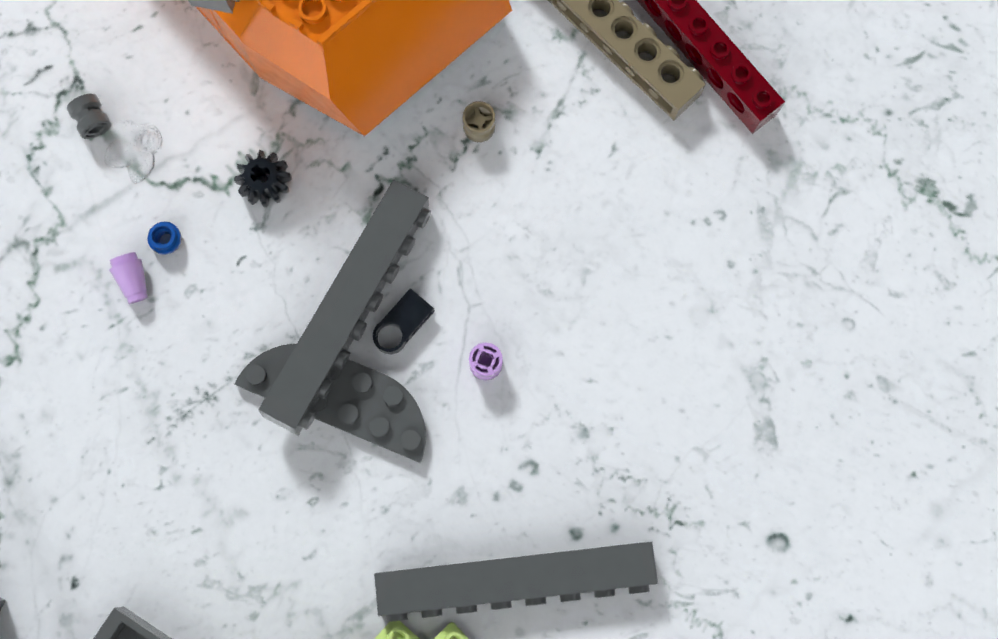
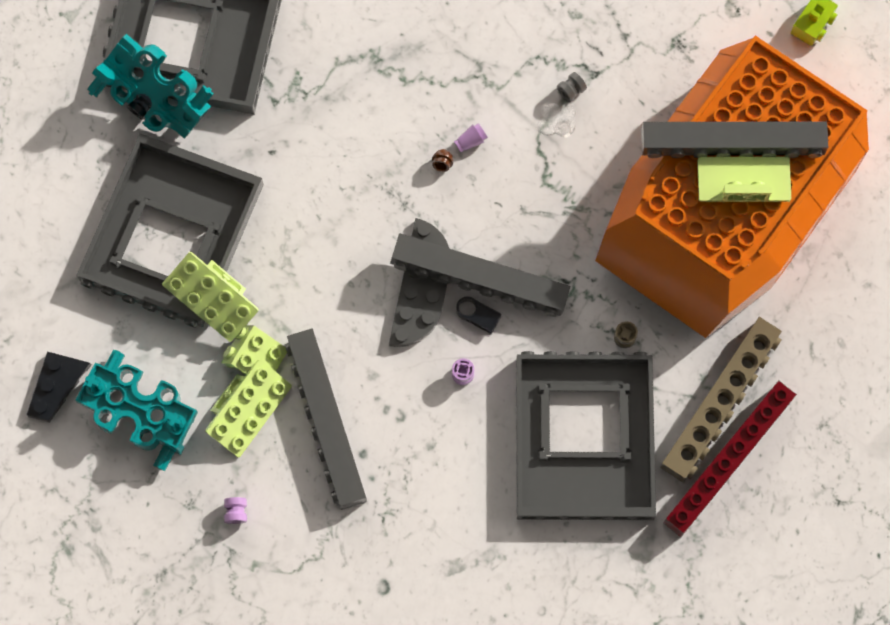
camera: 80 degrees right, 5 degrees down
(154, 326) = (442, 160): none -> reddish brown plate
(158, 231) = (502, 147): blue plate -> none
(253, 187) = (557, 212): black gear -> none
(681, 224) = (585, 482): none -> dark grey panel

